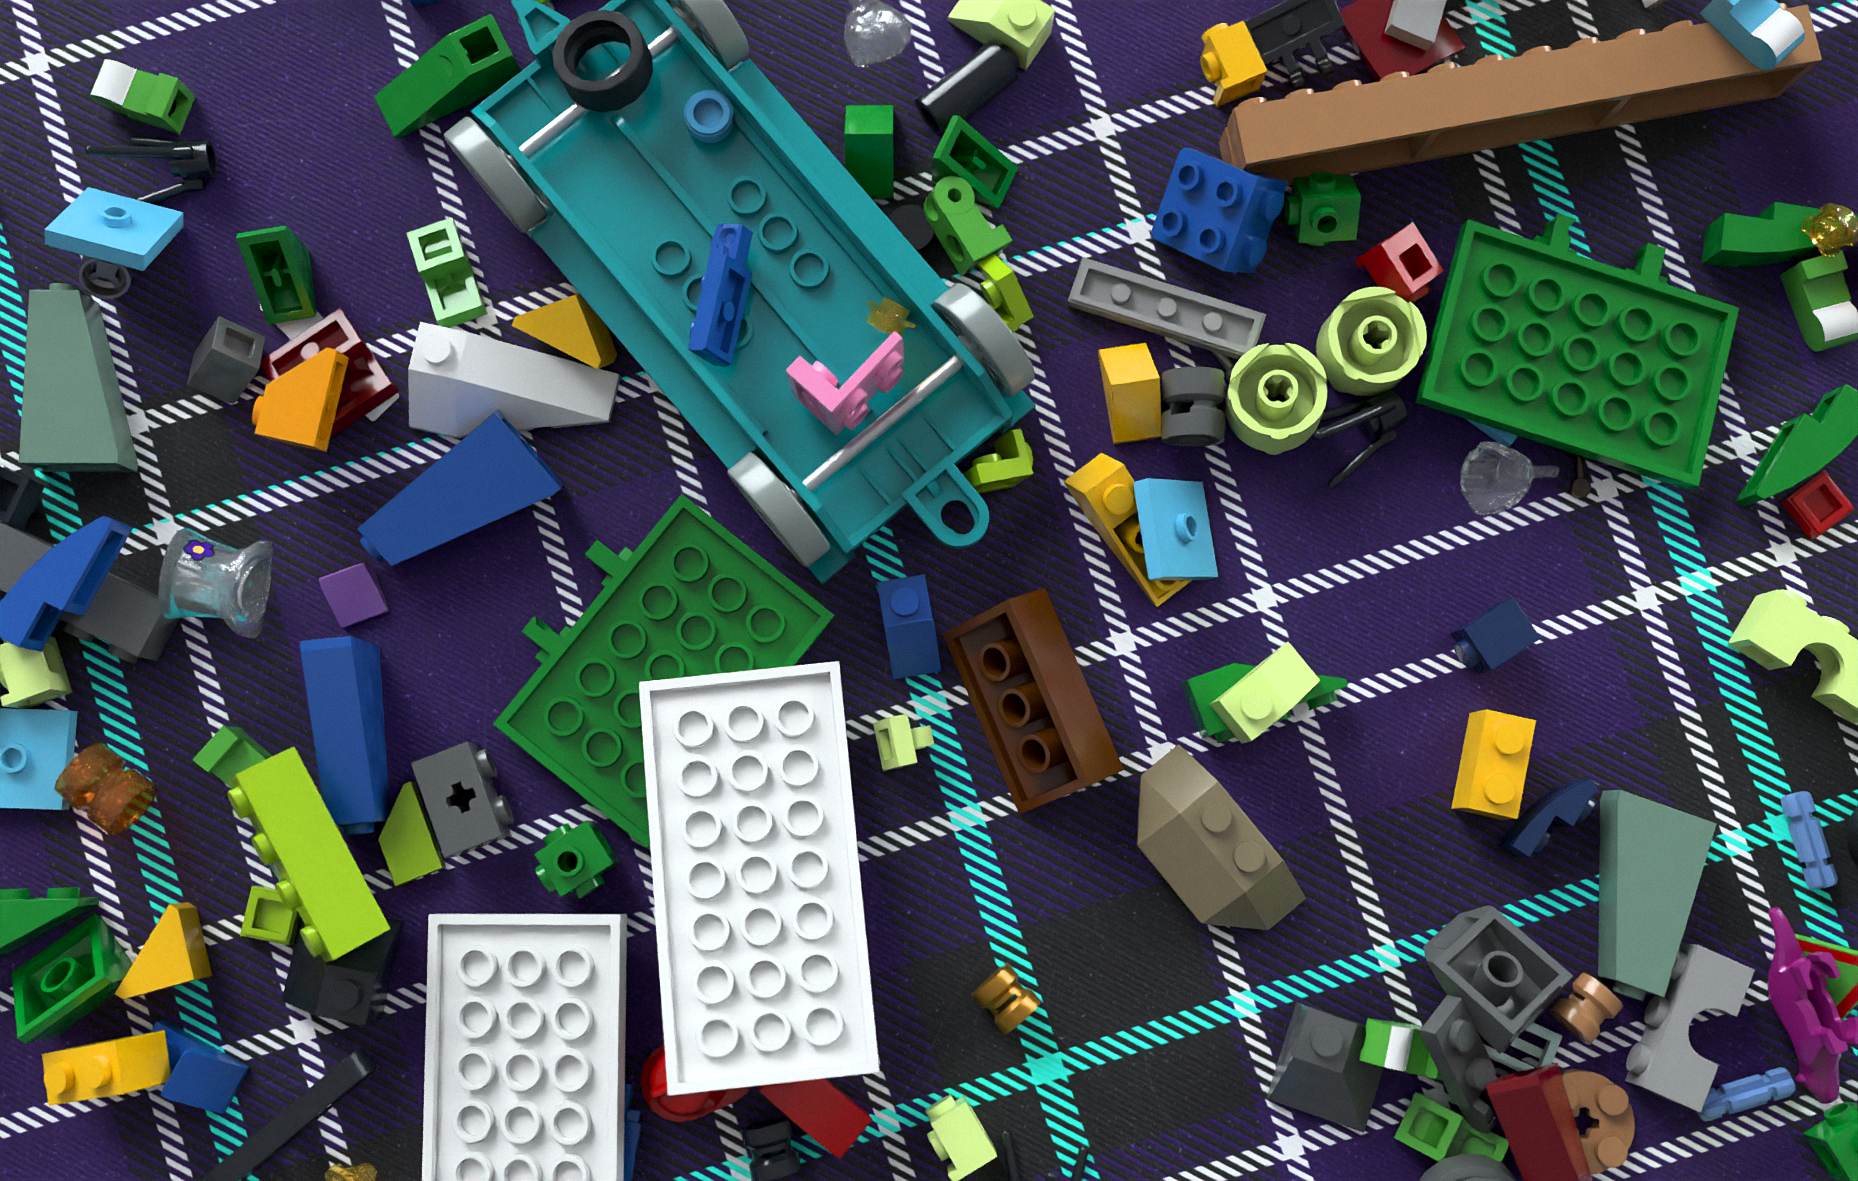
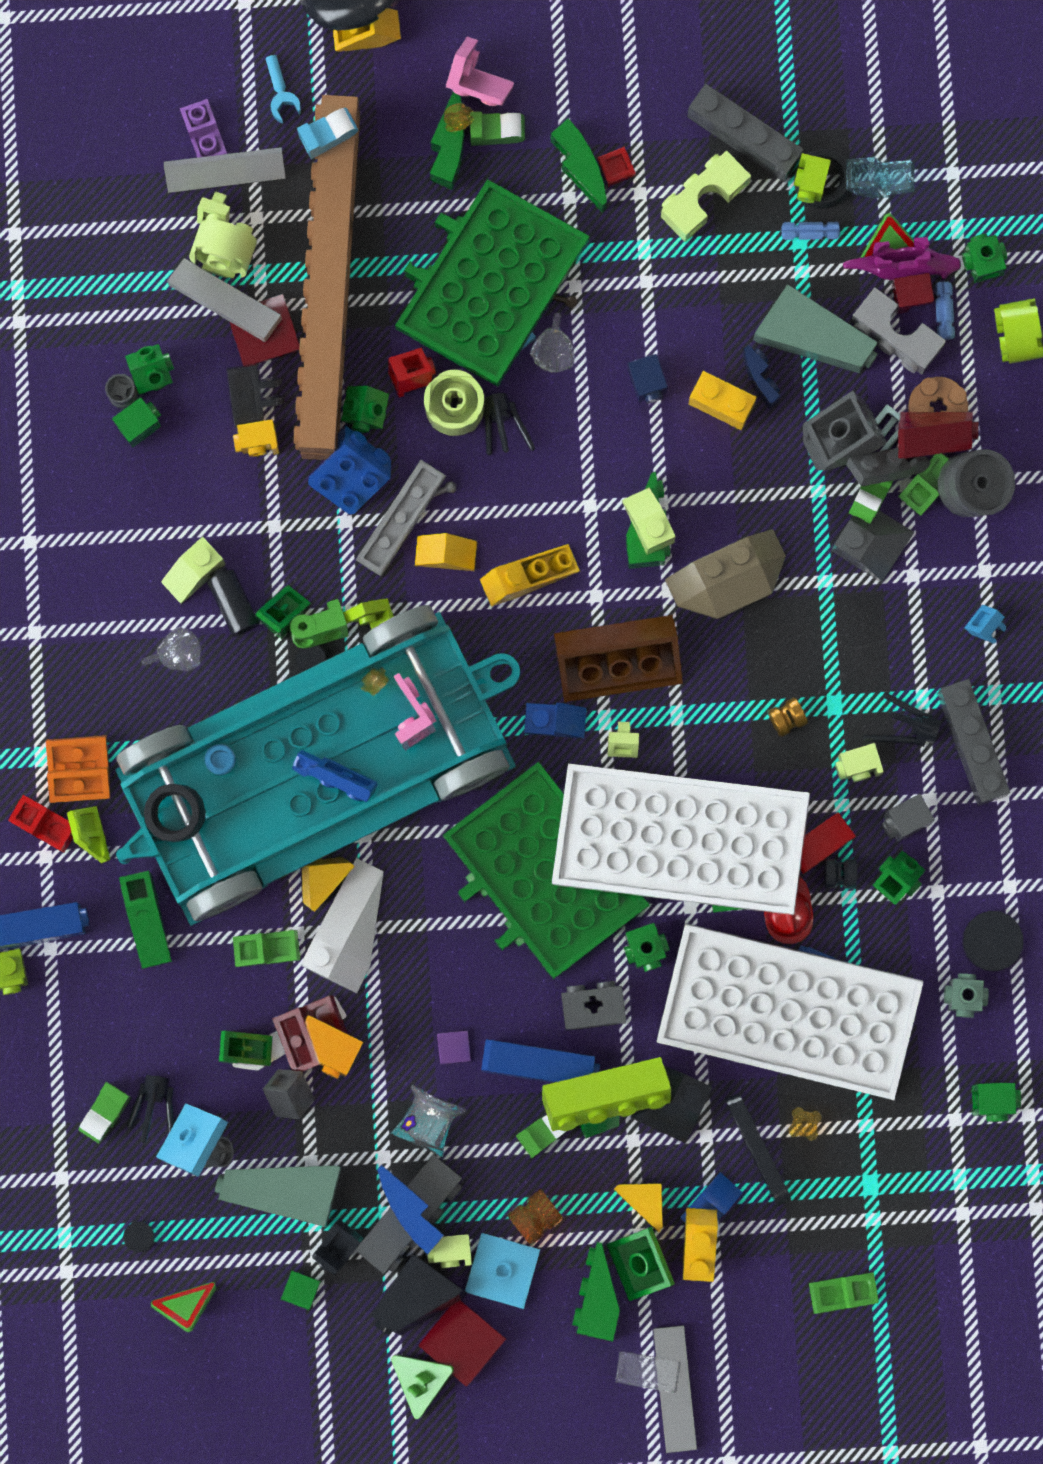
camera: 70 degrees left, 0 degrees up
(269, 918) = (633, 1138): lime tile -> none
(409, 839) = (609, 1047): lime tile -> none
(467, 488) = (409, 968): blue slope -> none
(870, 148) = (253, 670): green slope -> none
(1005, 468) = (474, 636): lime bracket -> none
(1175, 529) = (538, 547): medium azure plate -> none
(1193, 406) = (455, 518): dark grey wheel -> none
(1272, 372) = (457, 464): yellowish green brick -> none
(1586, 1008) = (874, 386): medium nougat wheel -> none
(1763, 1033) = (912, 291): none -> dark red panel

